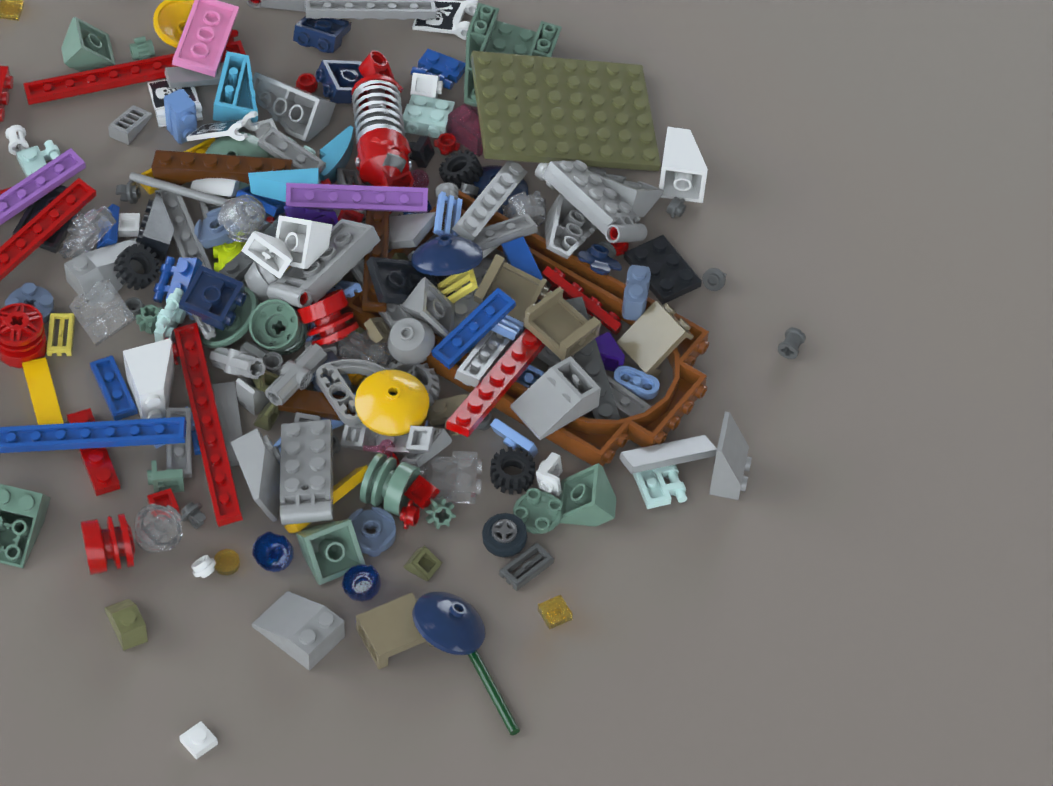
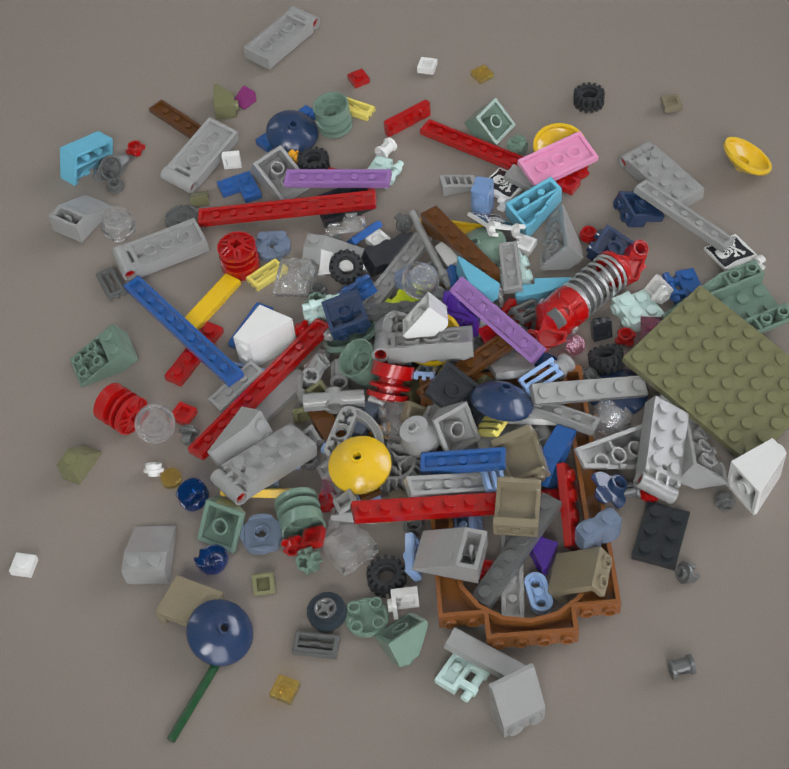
camera: 60 degrees right, 0 degrees up
(165, 479) = (201, 400): sand green bracket -> none
(268, 252) = (396, 309): white slope -> none

